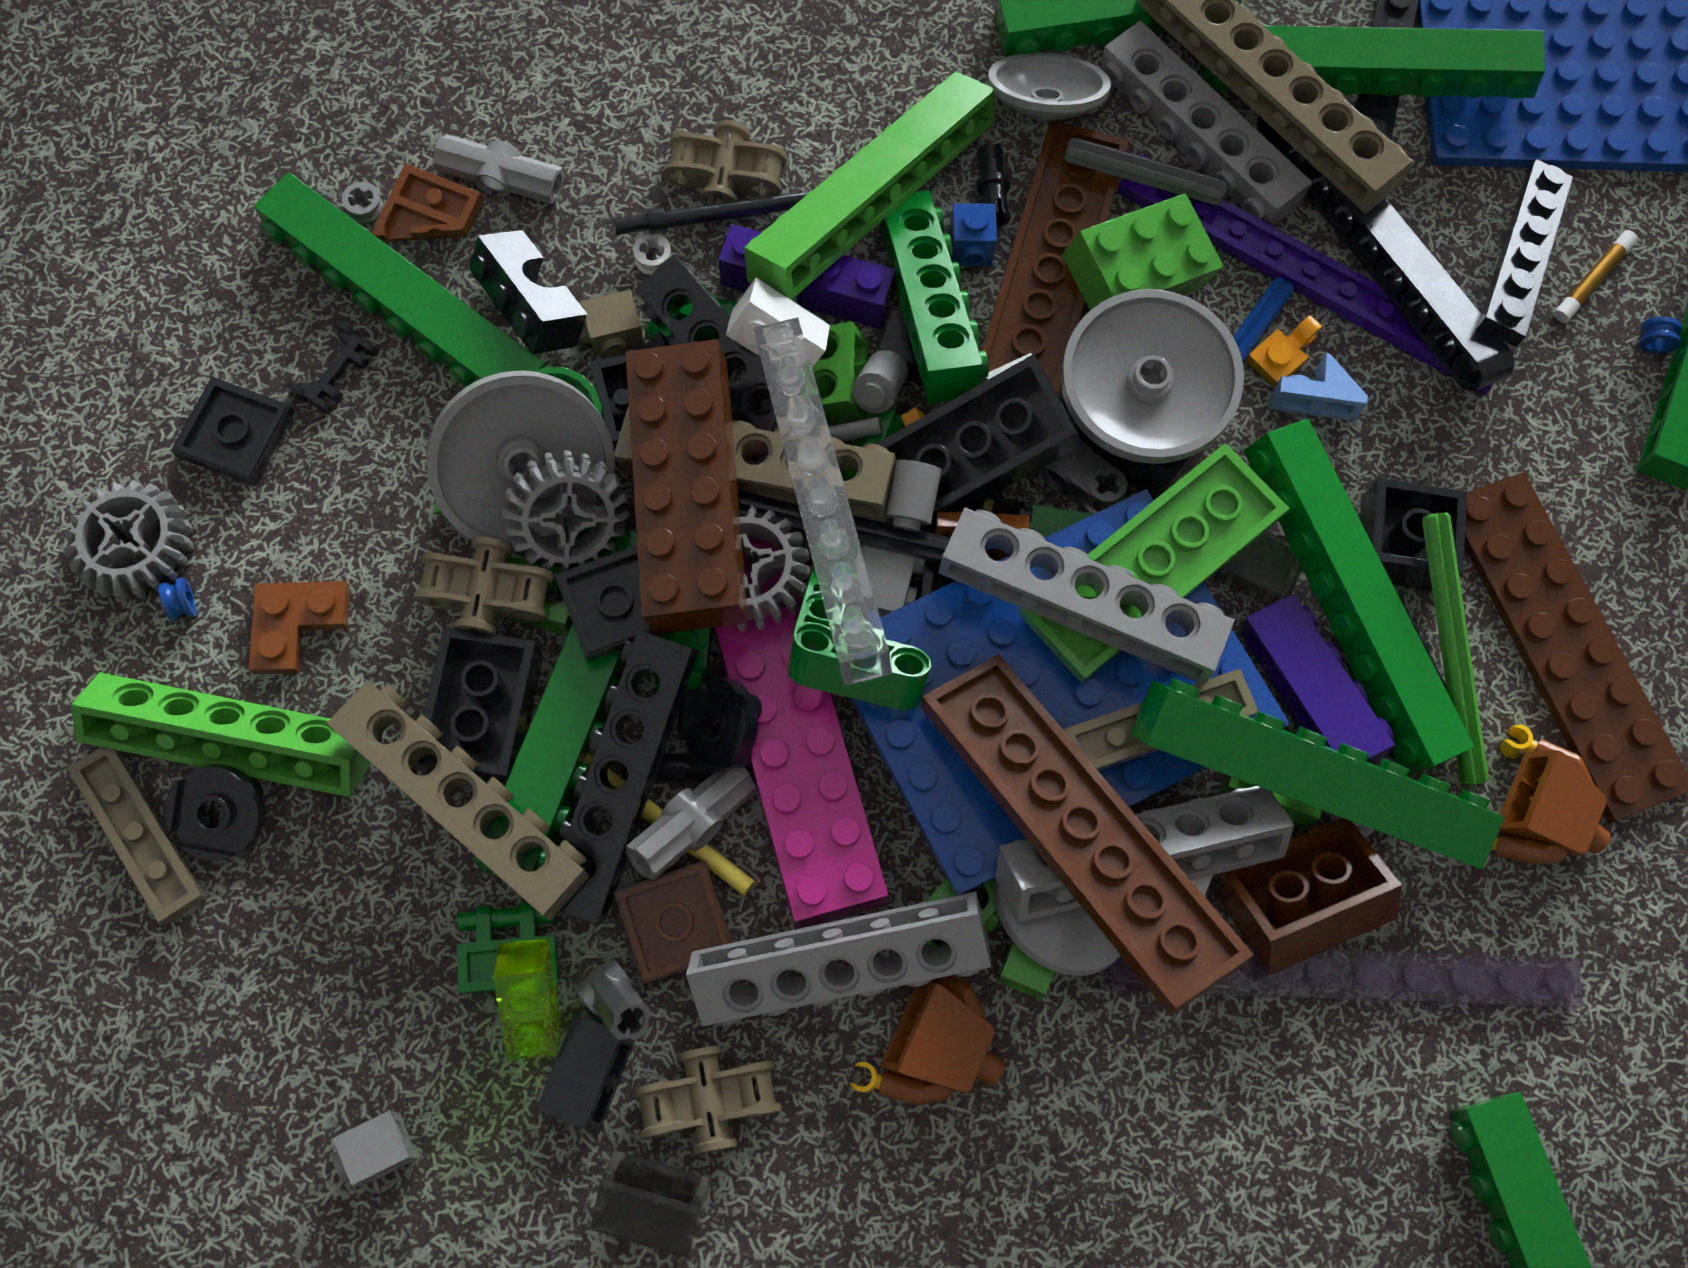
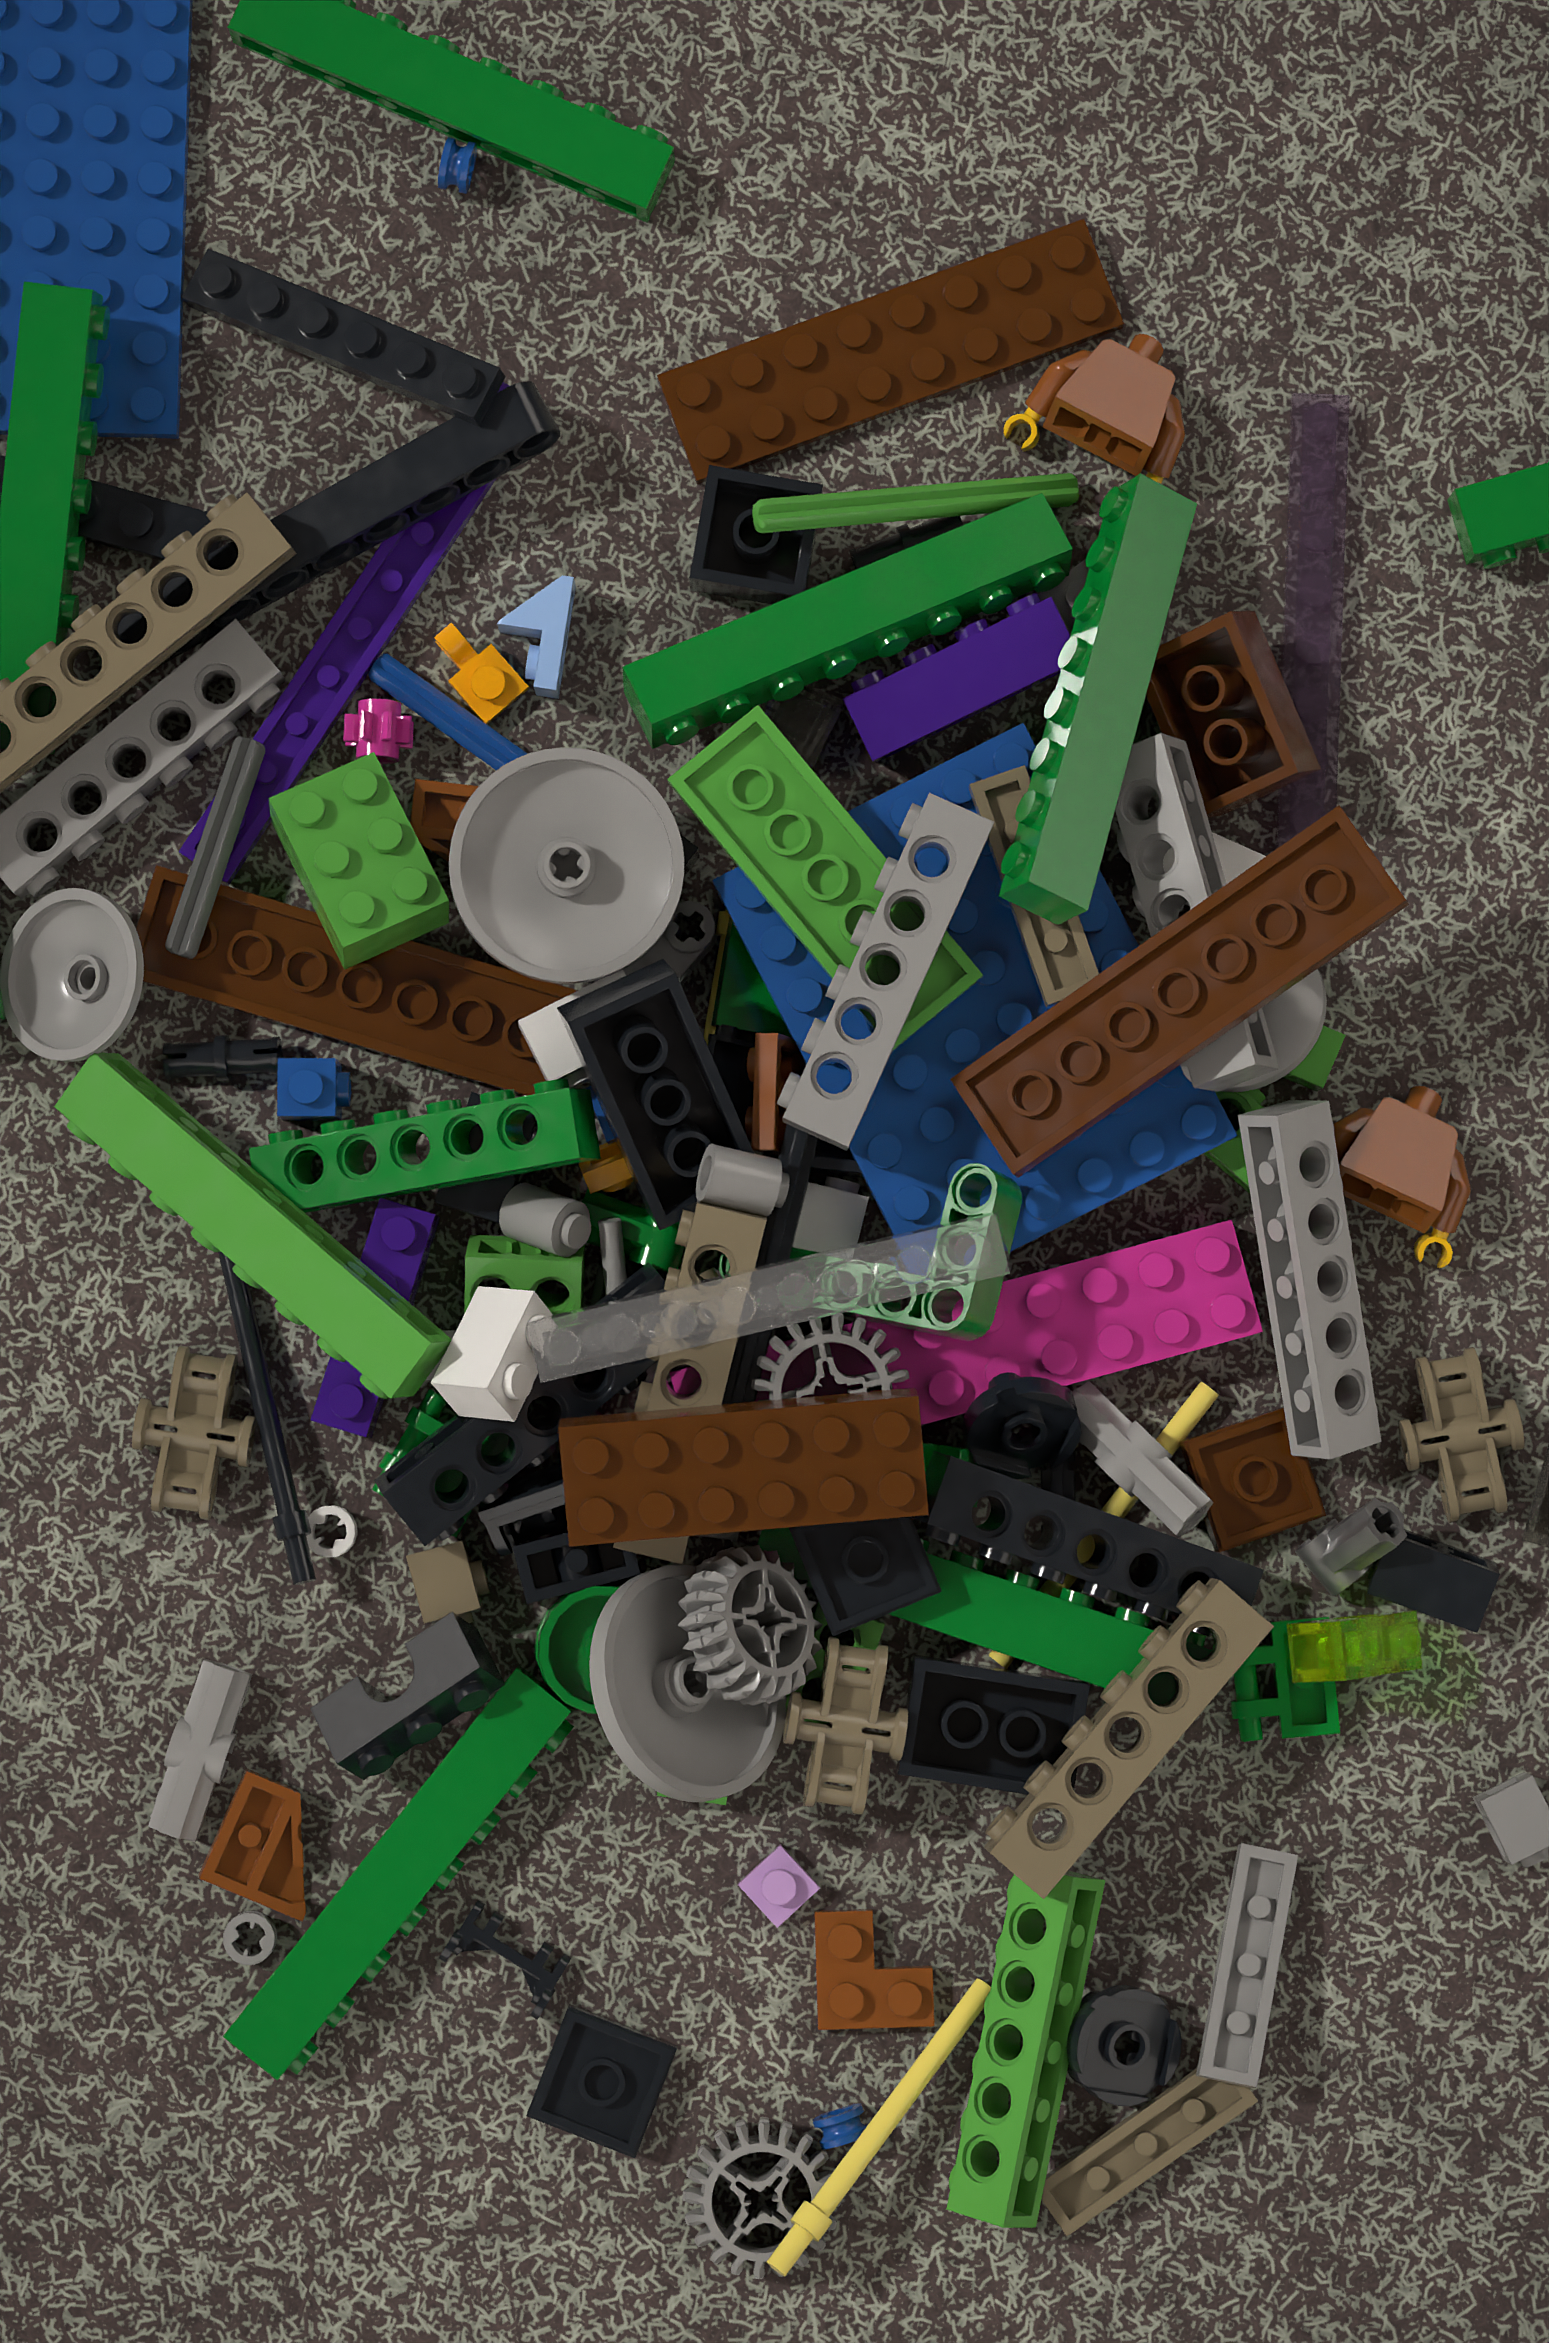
camera: 85 degrees left, 15 degrees up
(102, 565) = (813, 2218): none -> light yellow bar
(268, 912) = (1247, 1965): none -> light grey plate
(370, 558) = (778, 1885): none -> lavender plate
(1238, 280) = (378, 730): none -> dark pink gear
(1595, 276) = (359, 236): pearl gold bar -> none

